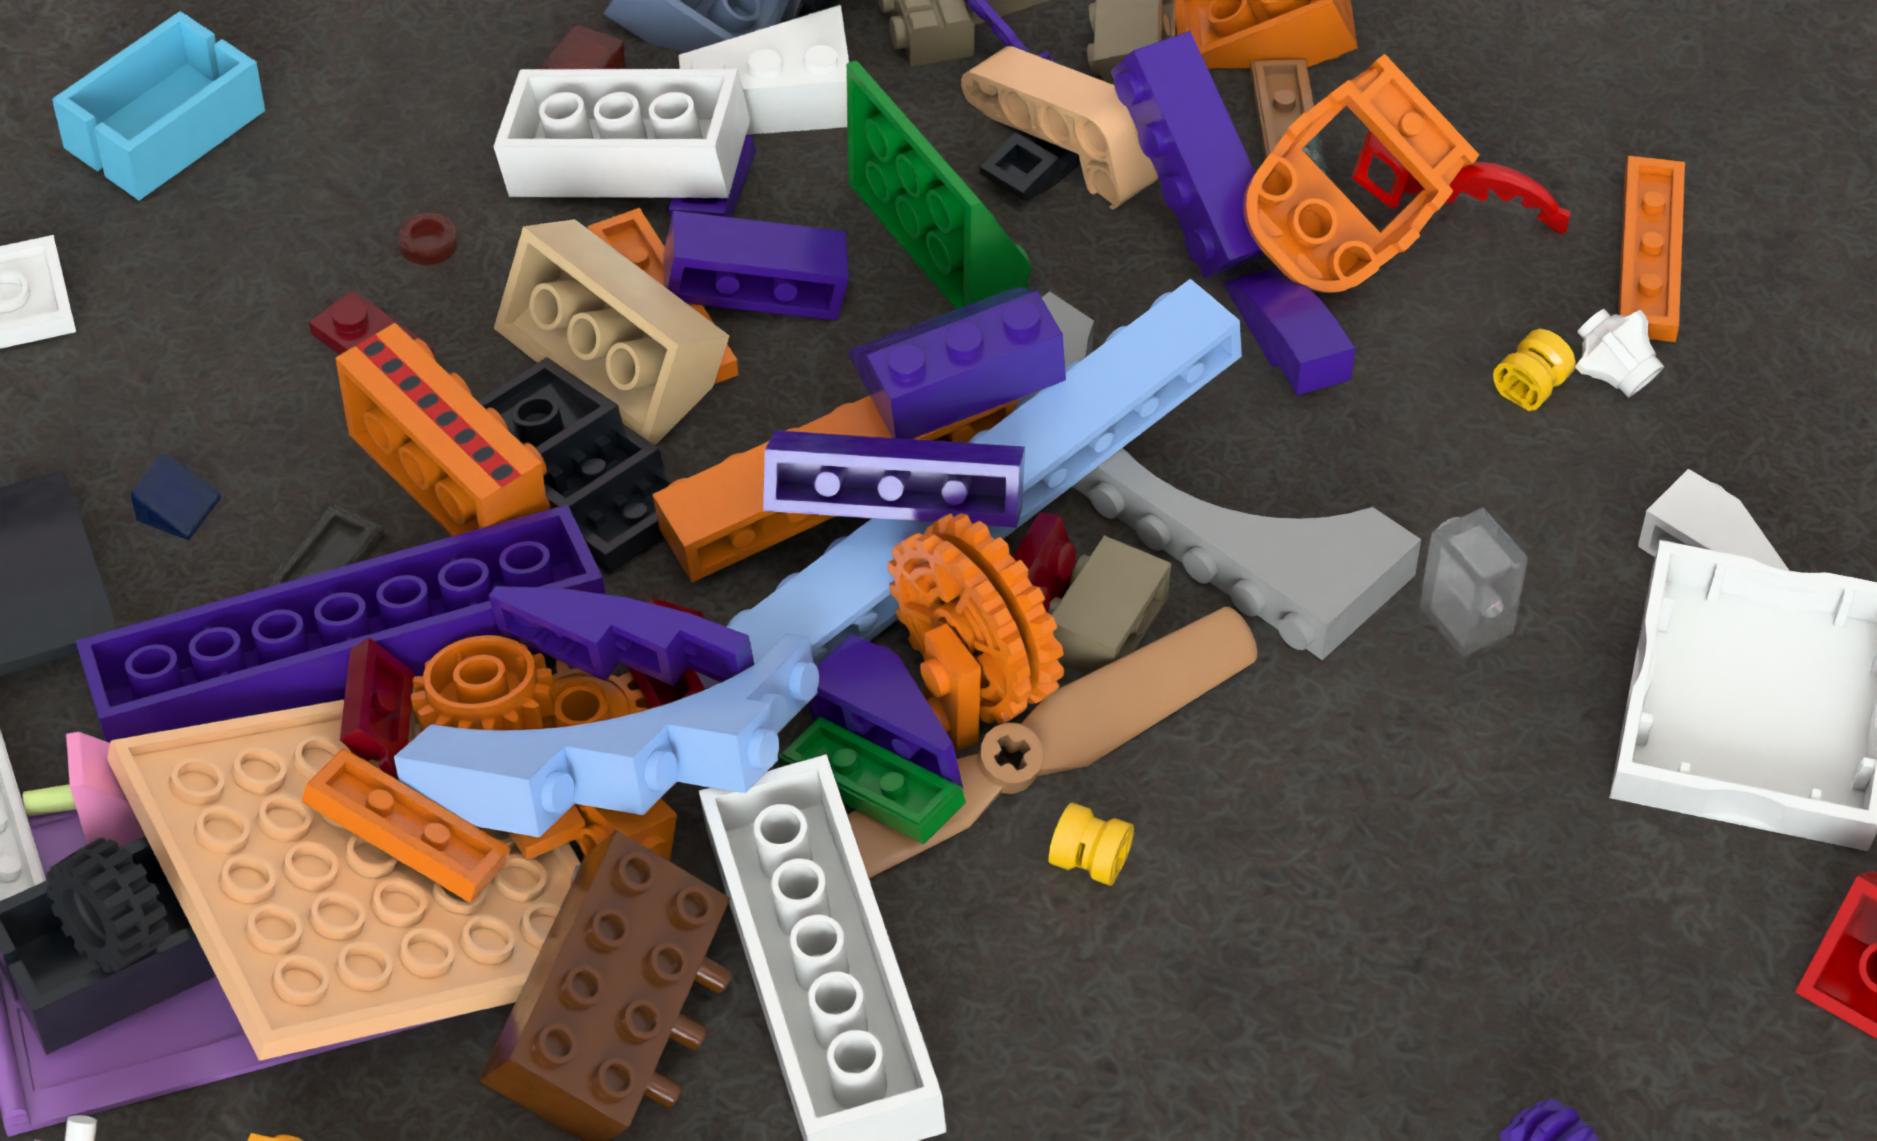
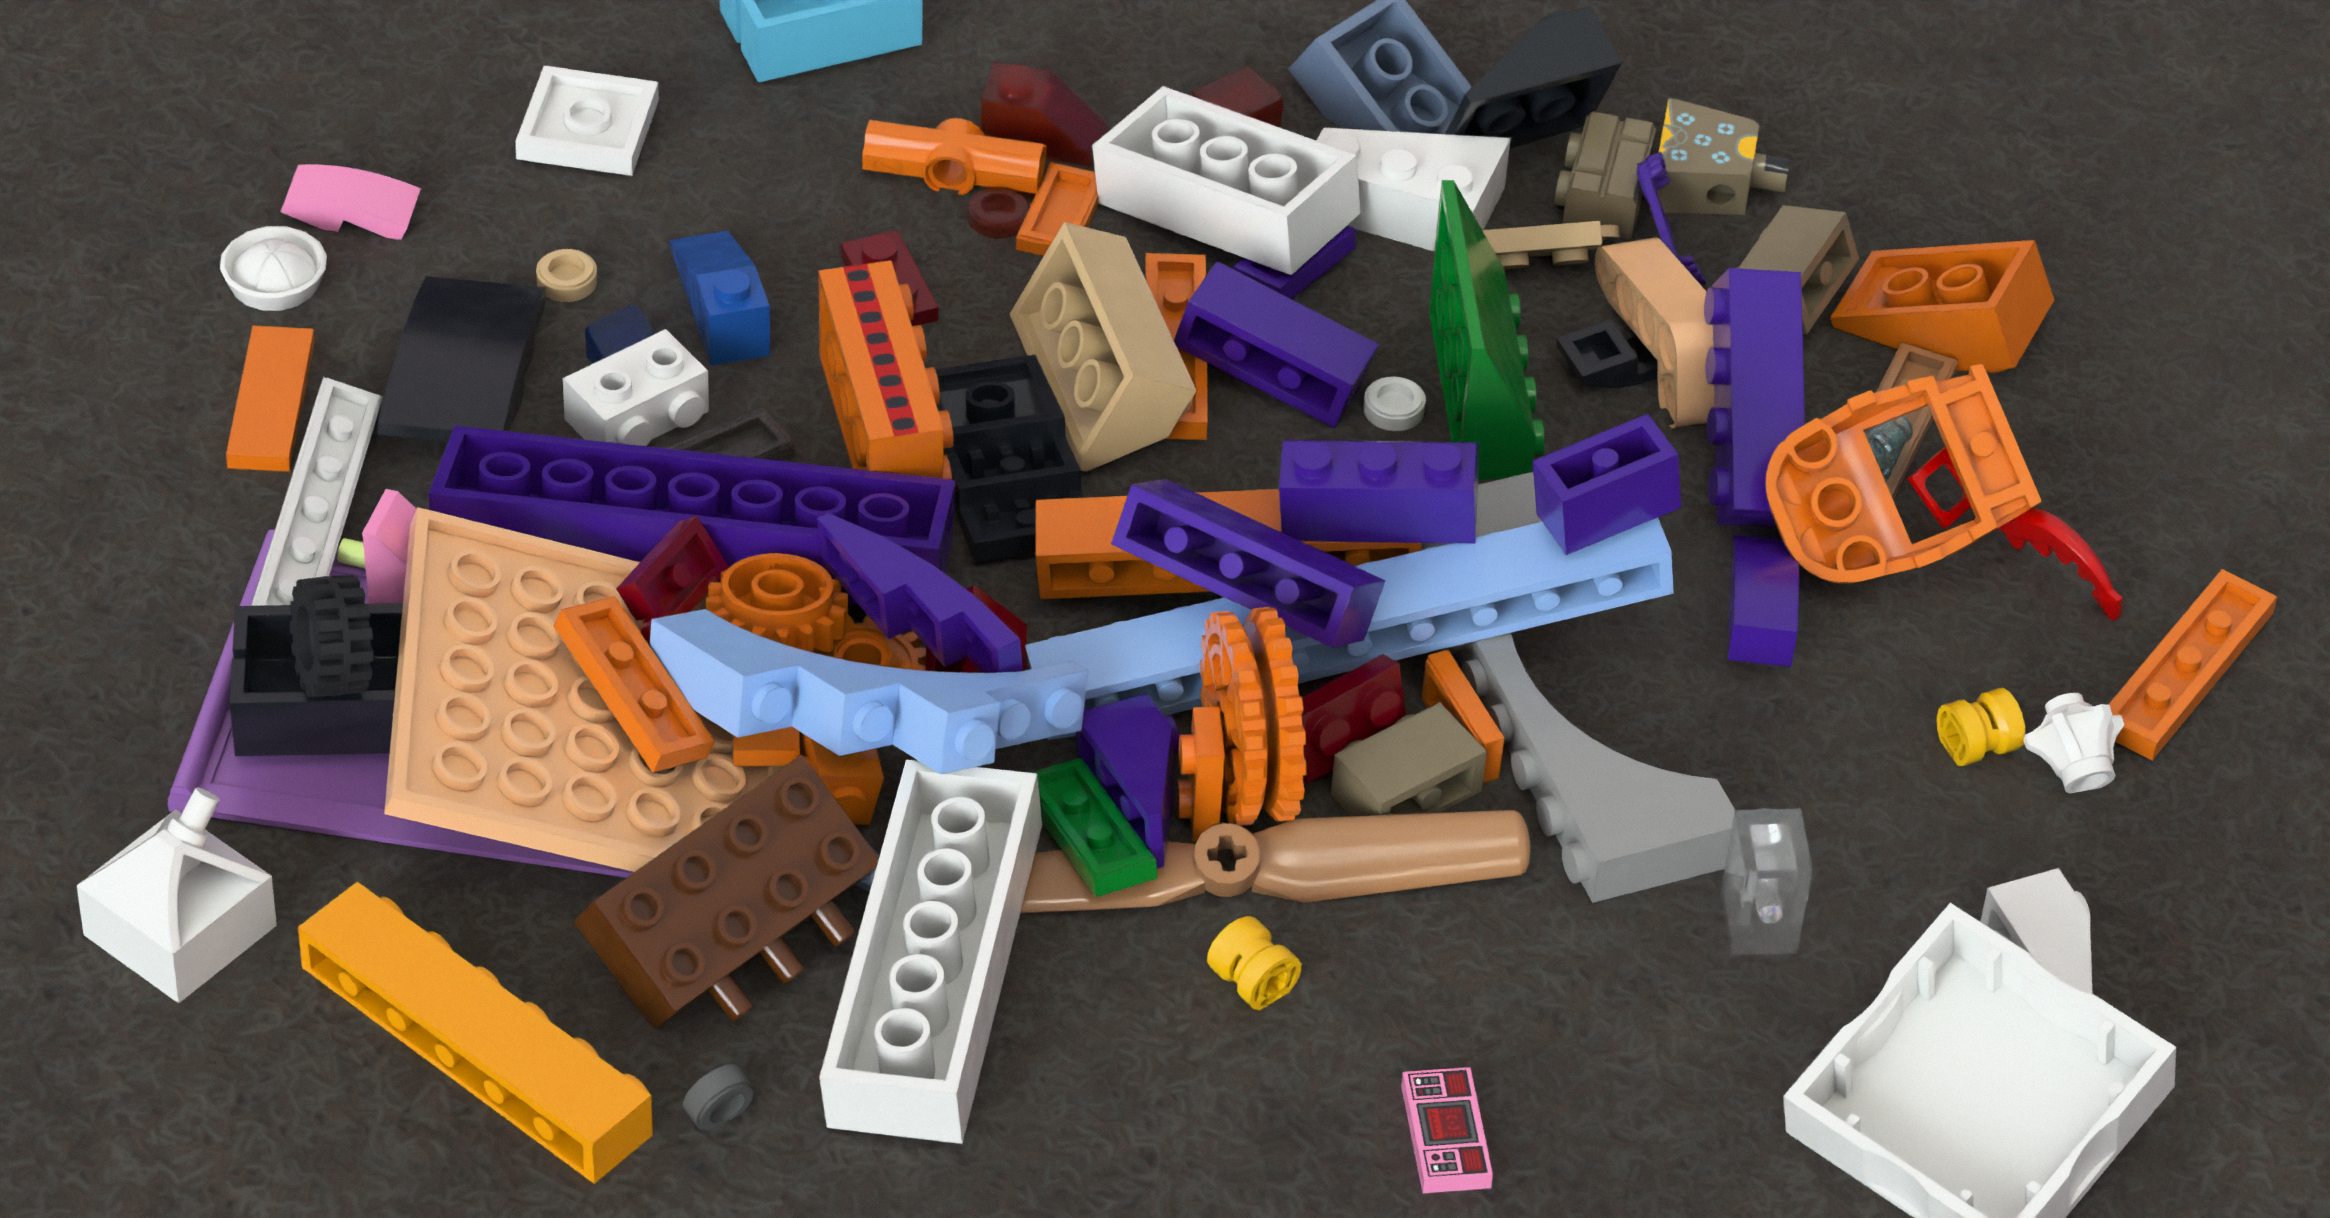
camera: 25 degrees right, 5 degrees down
(74, 449) = (567, 275): none -> tan tile
(214, 539) = (637, 392): none -> white brick
(234, 411) = (724, 296): none -> blue slope
(361, 202) = (953, 156): none -> orange piece
(414, 139) = (1039, 109): none -> clear red slope
(482, 217) = (1062, 197): none -> orange tile
(876, 278) = (1394, 403): none -> white tile
(931, 80) = (1564, 242): none -> tan hinge
(1092, 517) = (1449, 686): none -> orange tile
(1166, 283) = (1607, 484): none -> dark purple brick
(1343, 925) = (1446, 1130): none -> tile

